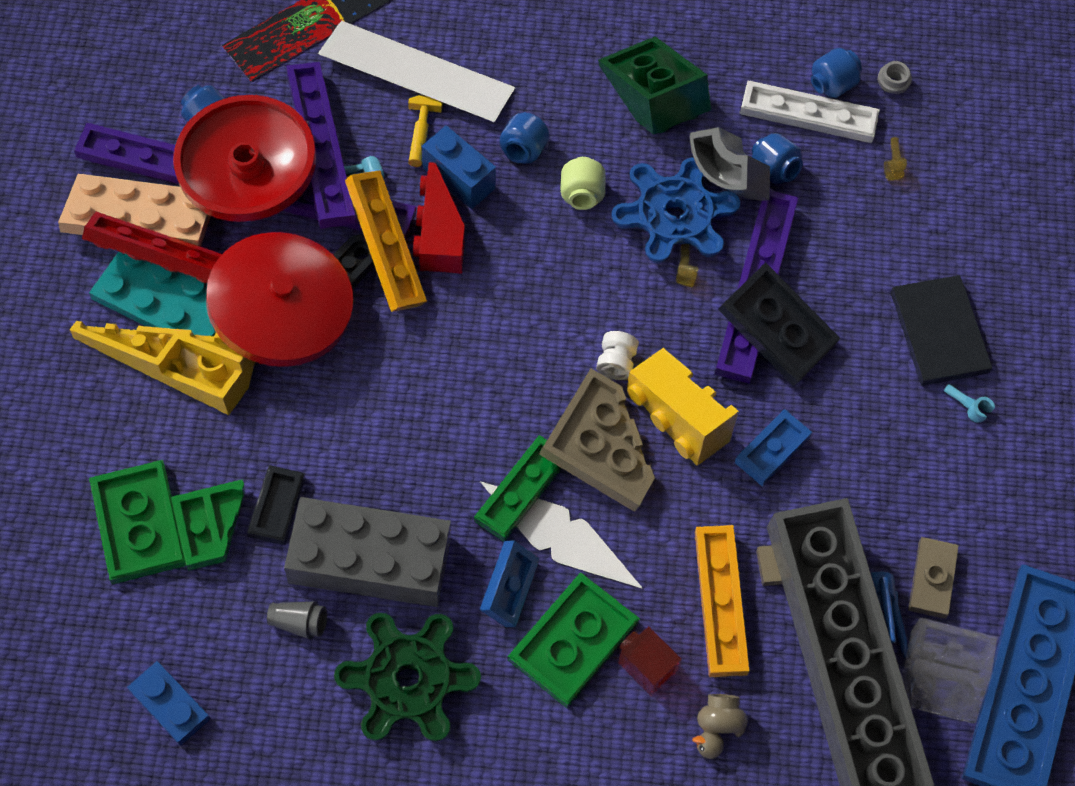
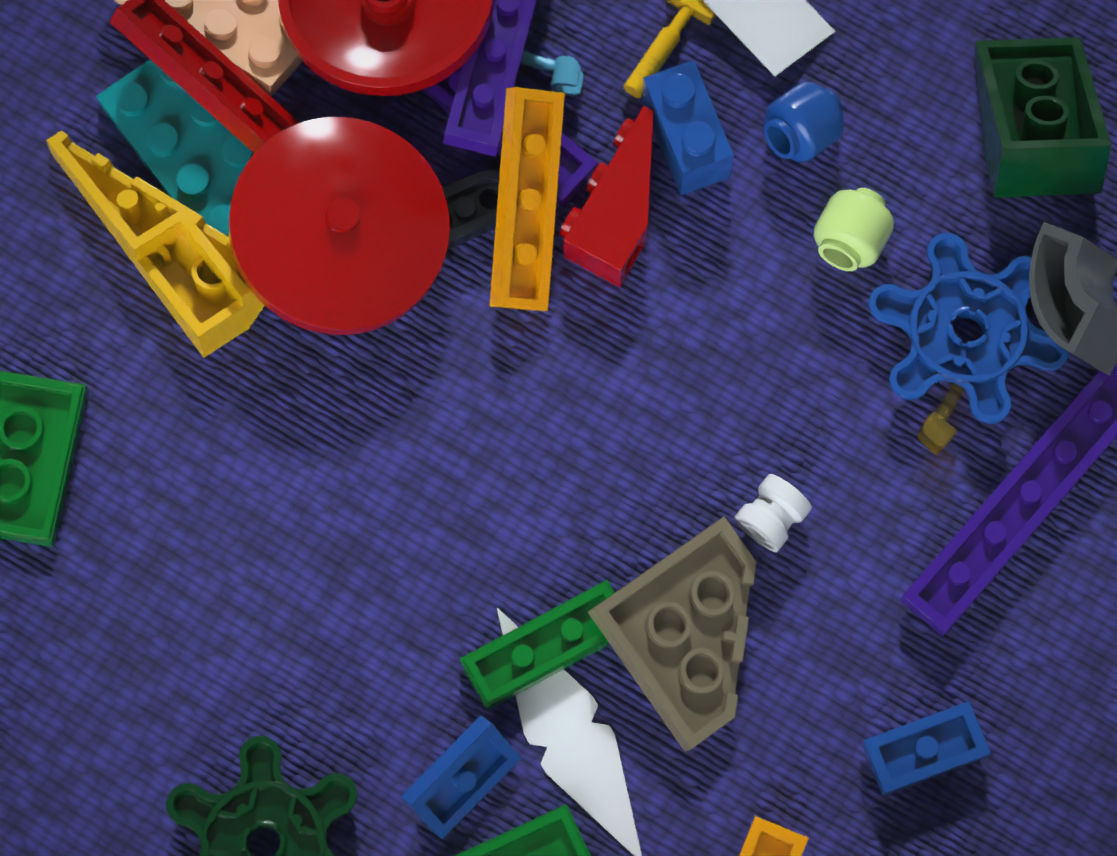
camera: 30 degrees right, 10 degrees up
(208, 522) = (104, 502): green wing -> none
(276, 505) = (207, 517): black tile -> none
(300, 618) = (161, 693): dark grey cone -> none
(368, 552) = (293, 644): dark grey brick -> none
(681, 407) = (821, 630): yellow wedge -> none
(779, 324) = (1027, 571): black tile -> none

